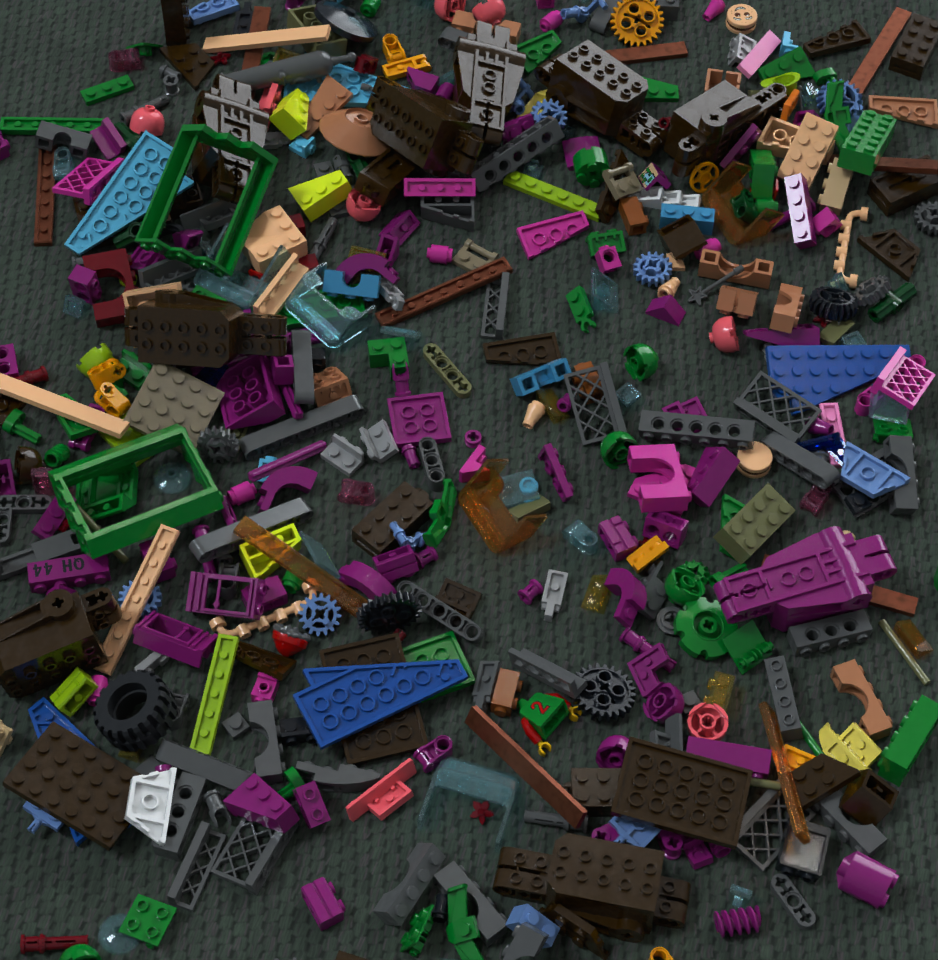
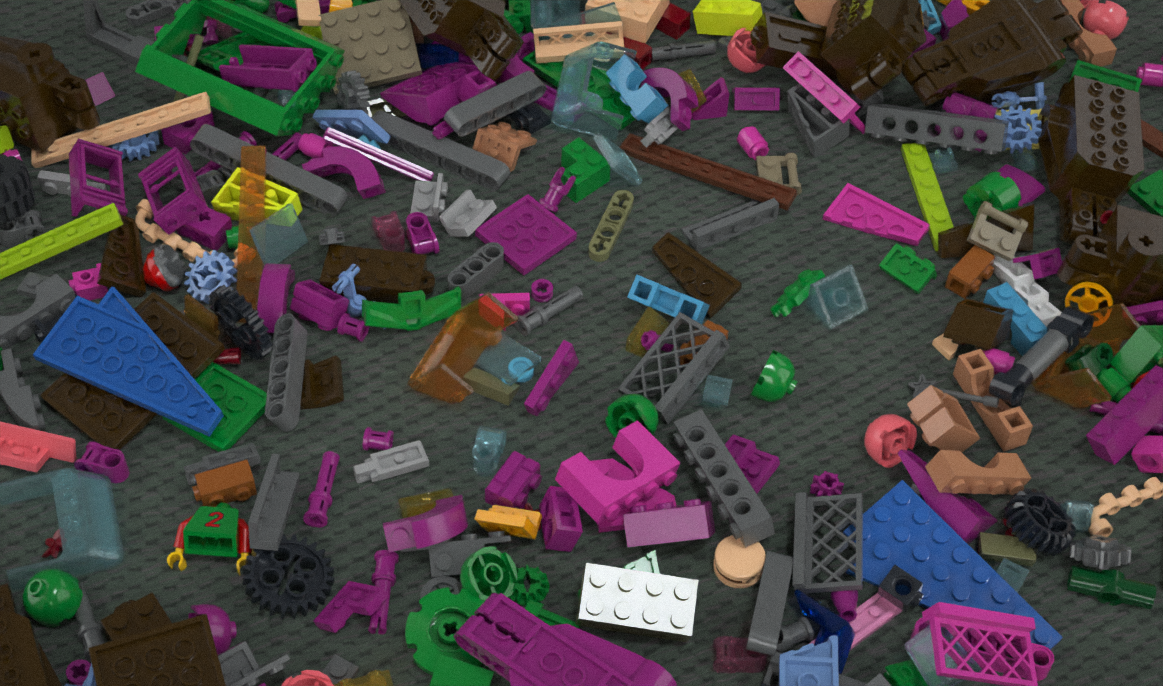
camera: 55 degrees right, 5 degrees down
(68, 571) = (120, 72): magenta brick -> none
(133, 480) = (270, 67): none -> magenta door
(242, 461) = (351, 123): none -> medium blue wing
(344, 526) = (331, 235): none -> dark grey hinge
(357, 634) = (201, 316): none -> clear orange piece
(376, 476) = (420, 234): none -> magenta piece
(411, 456) = (476, 244): magenta pin -> none
(491, 426) = (540, 314): none -> dark grey pin
(526, 767) = (128, 553): copper tile -> none
(528, 828) = (52, 597): none -> green cylinder
(533, 414) = (617, 324): light nougat cone -> none
(553, 646) = (320, 498): none -> magenta pin
(604, 266) = (886, 288): dark pink brick -> none
(652, 269) = (915, 326): medium blue gear -> none
(663, 702) = (311, 645): magenta cylinder -> none
(666, 309) = (874, 371): magenta slope -> none
(669, 287) = (902, 356): light nougat cone -> none
(729, 223) = (1061, 337): none -> black piece
(735, 386) = (826, 485): none -> magenta gear
(827, 399) = (900, 577): none -> black brick

